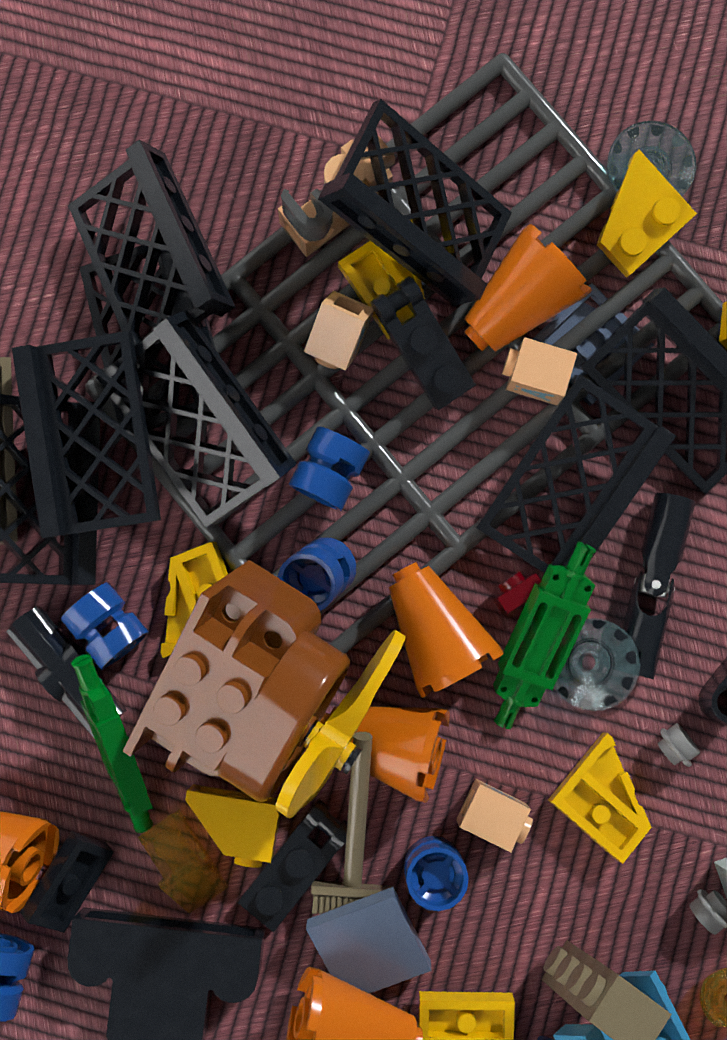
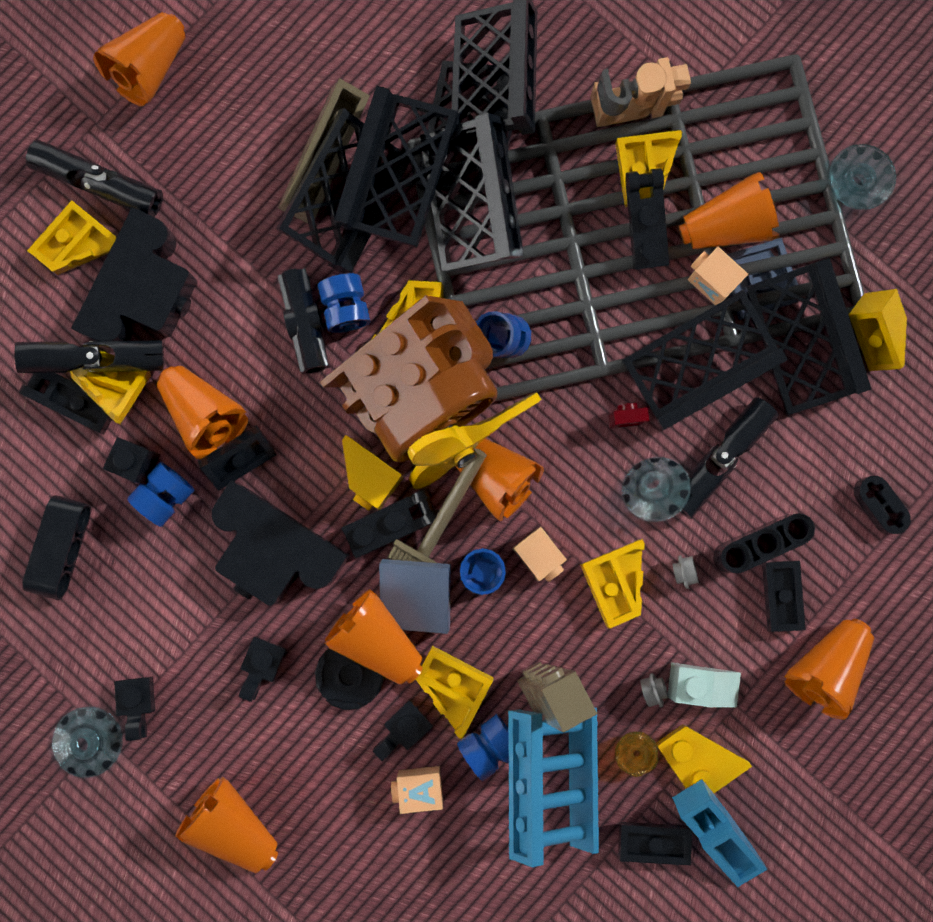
camera: 25 degrees right, 0 degrees up
(111, 740) = (313, 371): green piece -> none
(183, 862) = (318, 484): clear yellow slope -> none
(329, 468) = (547, 268): blue wheel -> none
(338, 331) = (595, 183): light nougat brick -> none
(394, 232) = (672, 139): black fence -> none
(440, 632) = (563, 415): orange cone -> none
(546, 637) = (658, 429): green piece -> none
(642, 216) = (838, 207): yellow wing -> none

